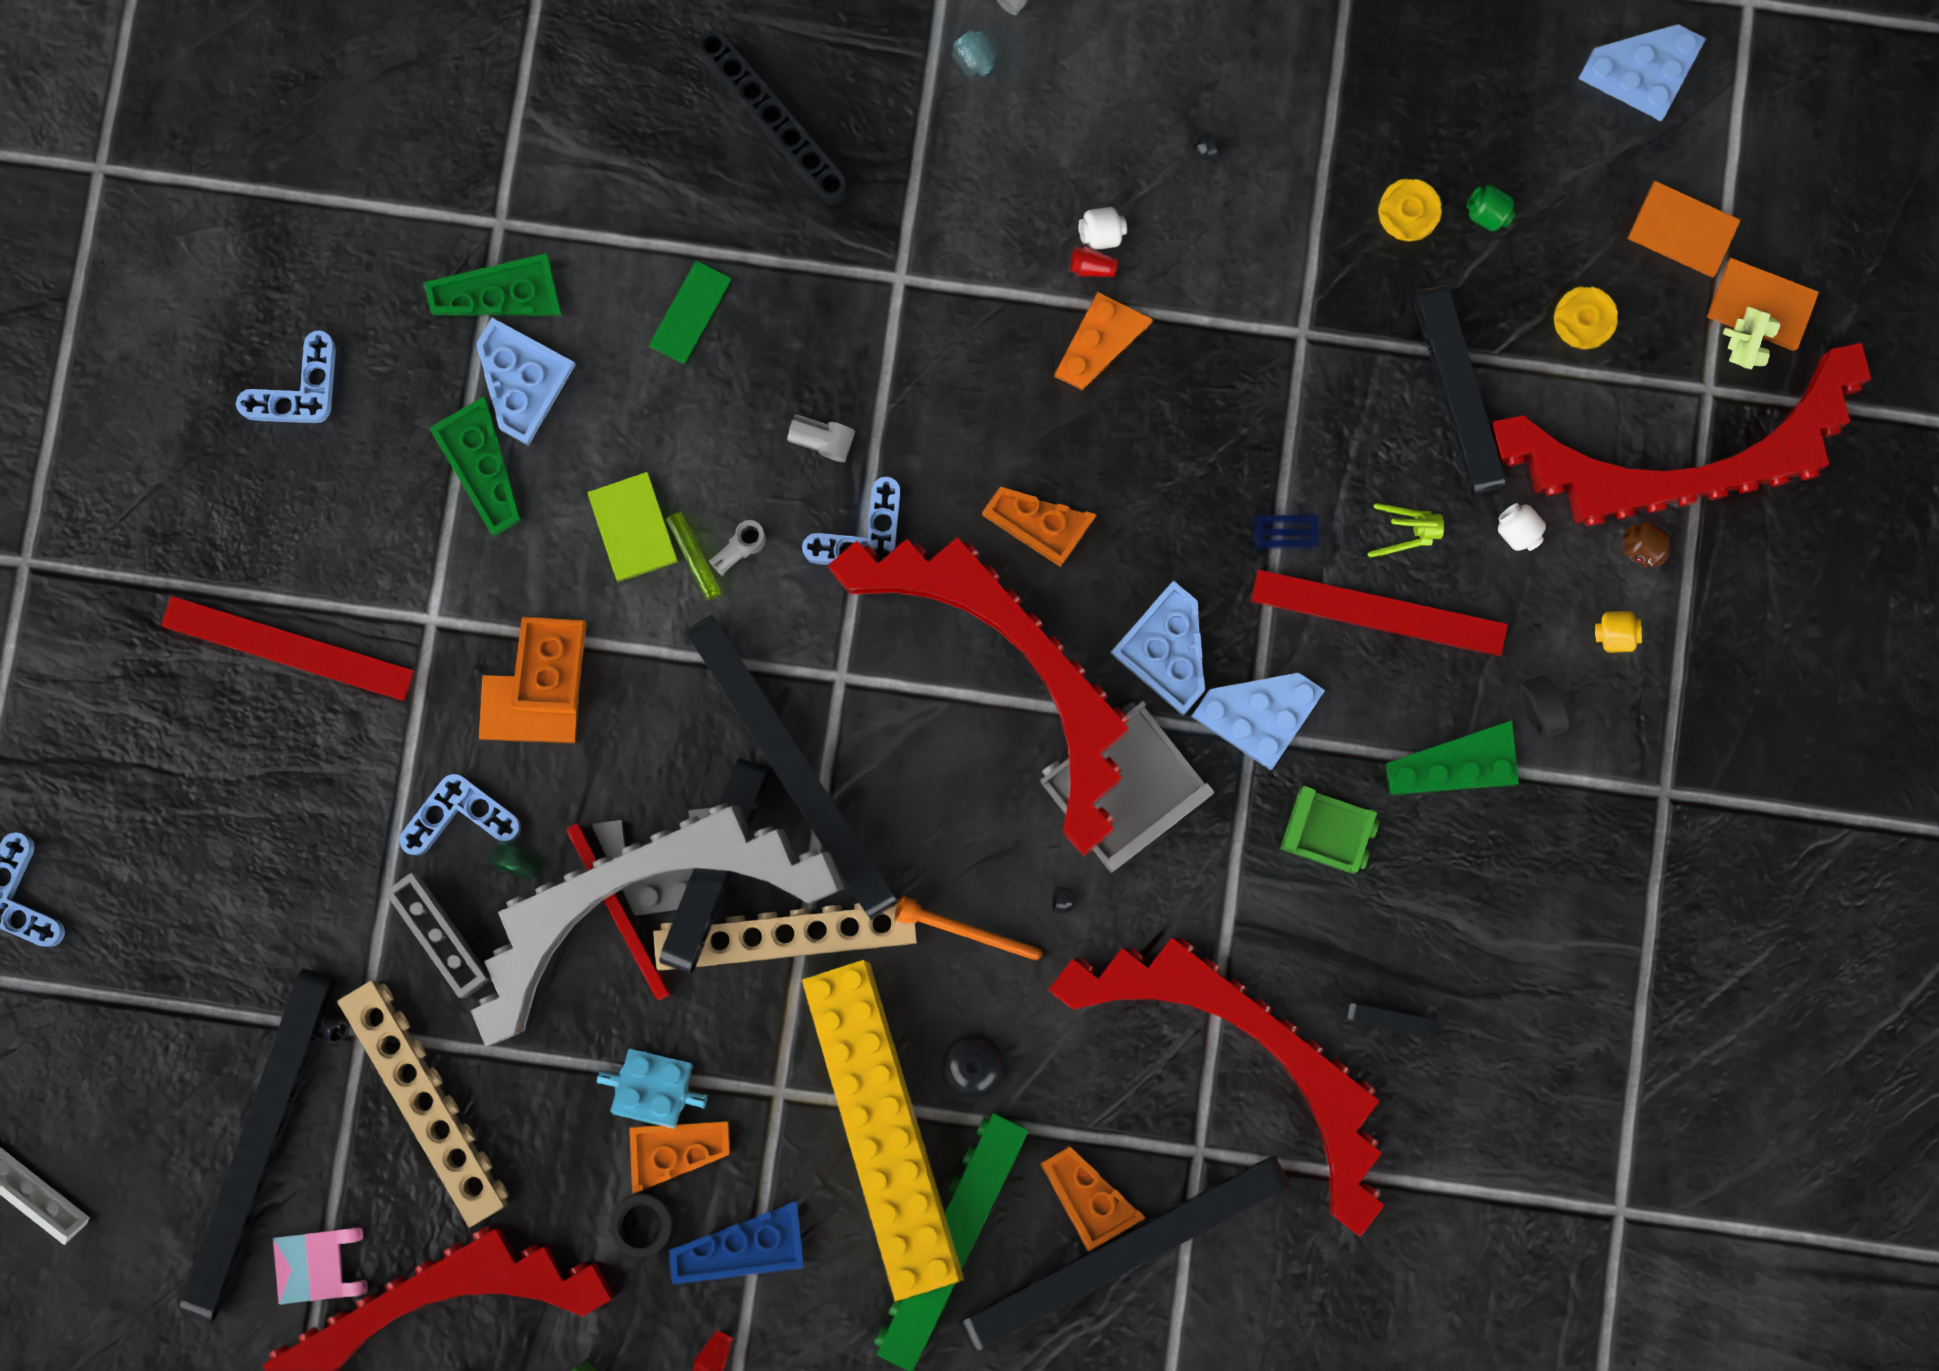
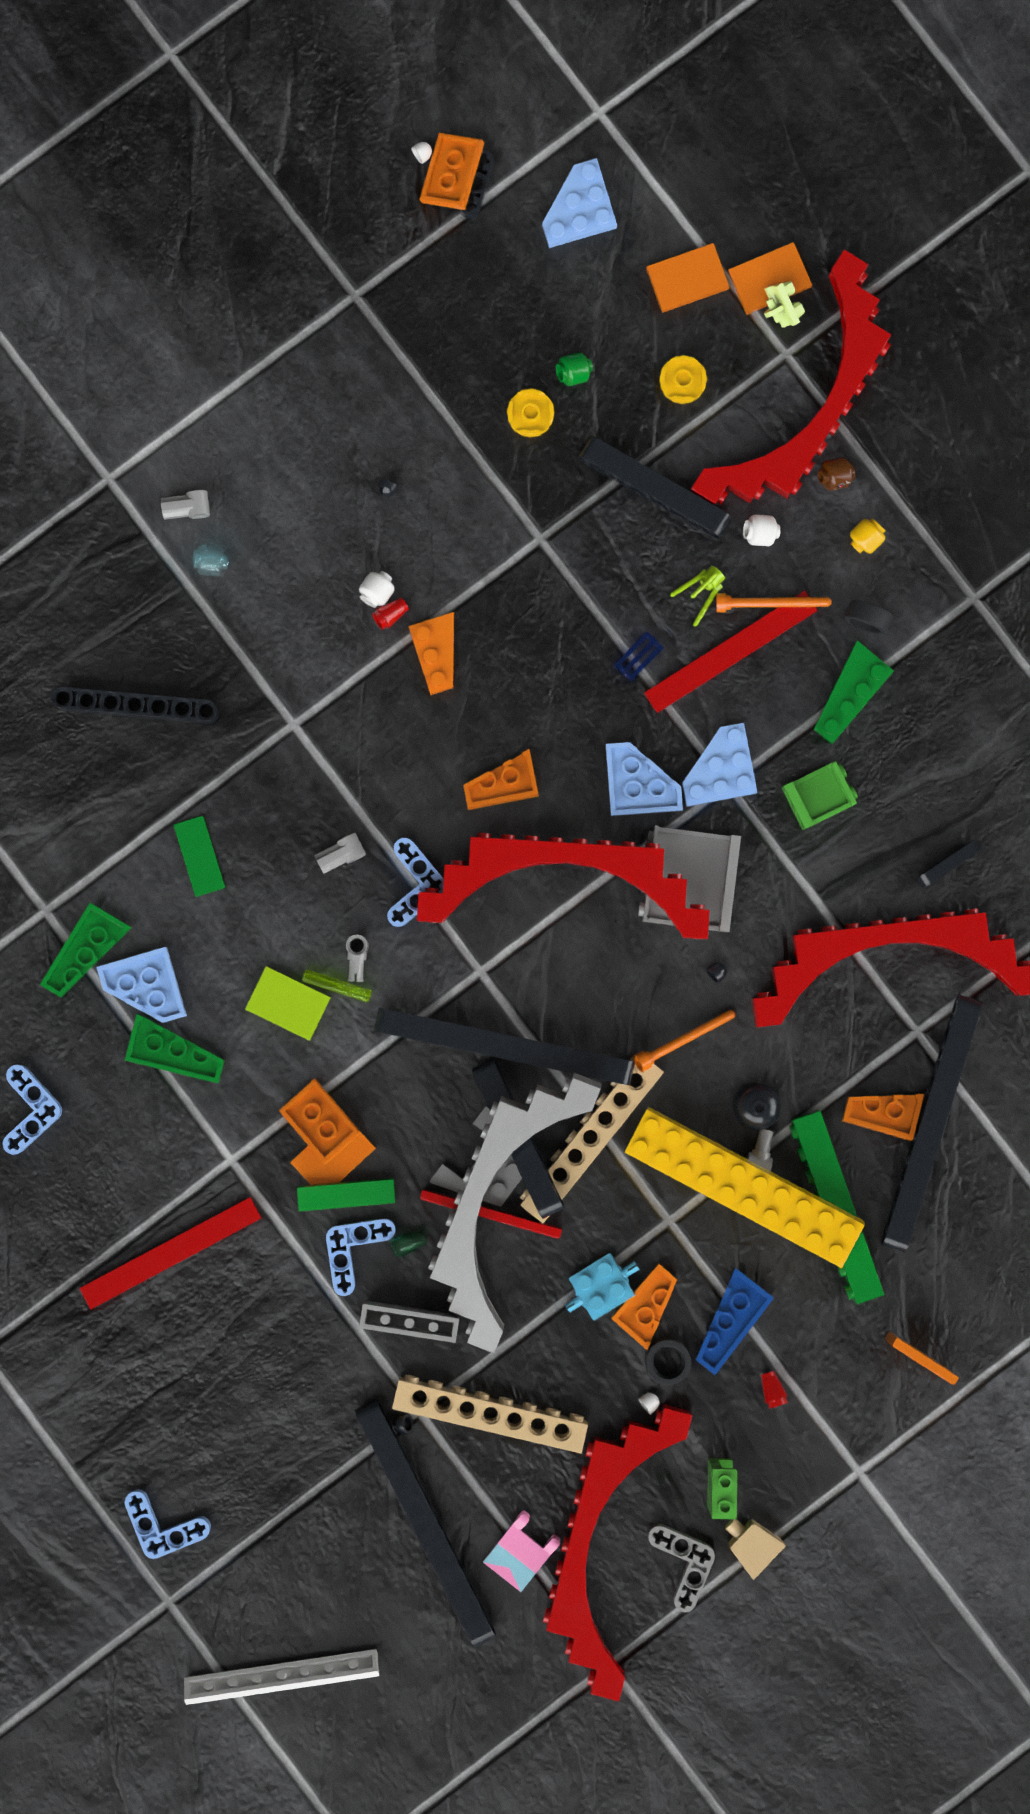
camera: 45 degrees left, 5 degrees up
(502, 756) = (345, 1194): none -> green tile
(584, 1247) = (649, 1402): none -> white hinge
(930, 1116) = (761, 1154): none -> light grey pin
(1420, 562) = (726, 602): none -> orange piece

